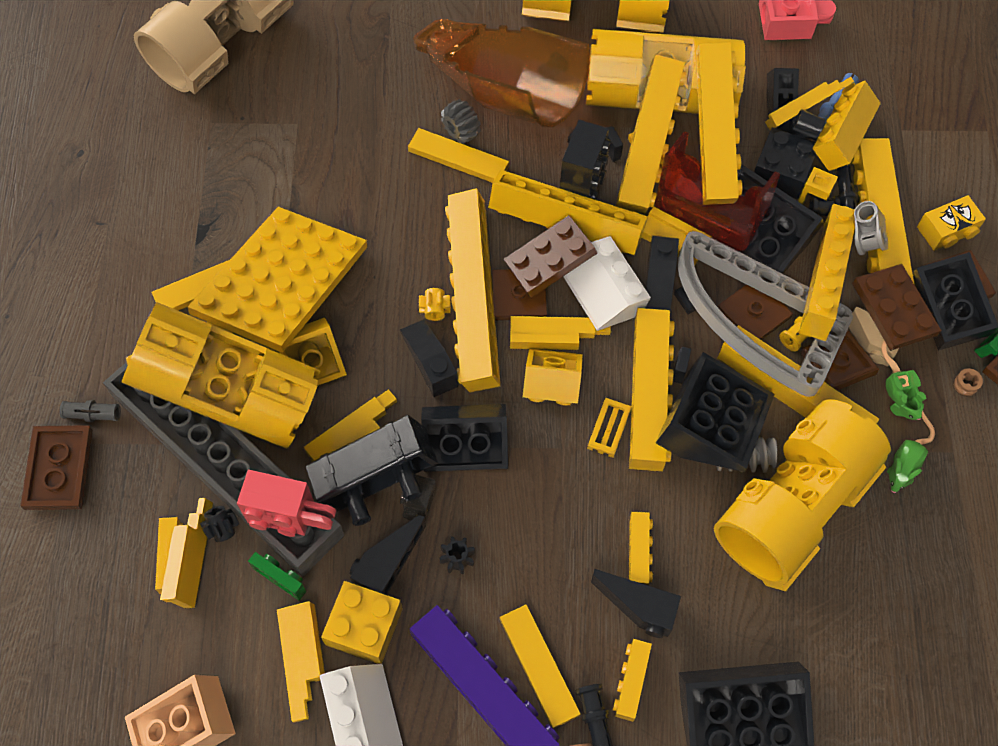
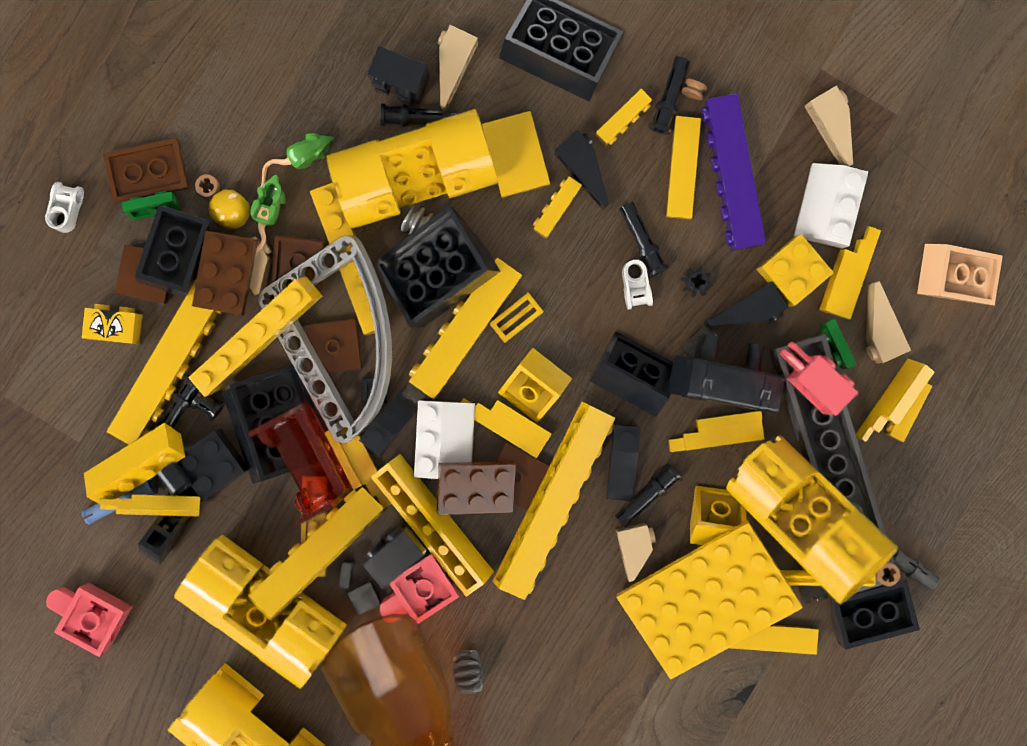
camera: 145 degrees left, 25 degrees up
(56, 468) = (960, 533): reddish brown plate -> none
(106, 343) = (874, 615): none -> black slope
(110, 373) = (895, 575): none -> medium nougat bush
(219, 523) = (861, 410): black gear -> none
(232, 612) = (883, 331): none -> tan slope
(375, 290) = (635, 547): none -> tan slope
(383, 349) = (657, 487): none -> black pin
(434, 304) = (593, 504): yellow gear -> none
(457, 155) = (486, 642): yellow tile -> none
(512, 515) = (636, 286): none -> white piece
(524, 559) = (648, 250): none -> black pin
(541, 155) = (419, 589): none -> coral brick
(681, 365) = (427, 333): black tile -> none
(714, 578) = (516, 154): none -> yellow tile
(717, 123) = (261, 518): yellow brick -> none
(786, 335) = (320, 306): yellow bush -> none
(819, 184) = (201, 423): yellow panel -> none
(840, 632) = (454, 57): none -> tan slope
(844, 550) = (406, 115): none -> black pin
(869, 233) = (195, 351): light grey piece -> none
(881, 576) = (398, 75): none -> black brick
(935, 372) = (229, 209): none -> yellow hair

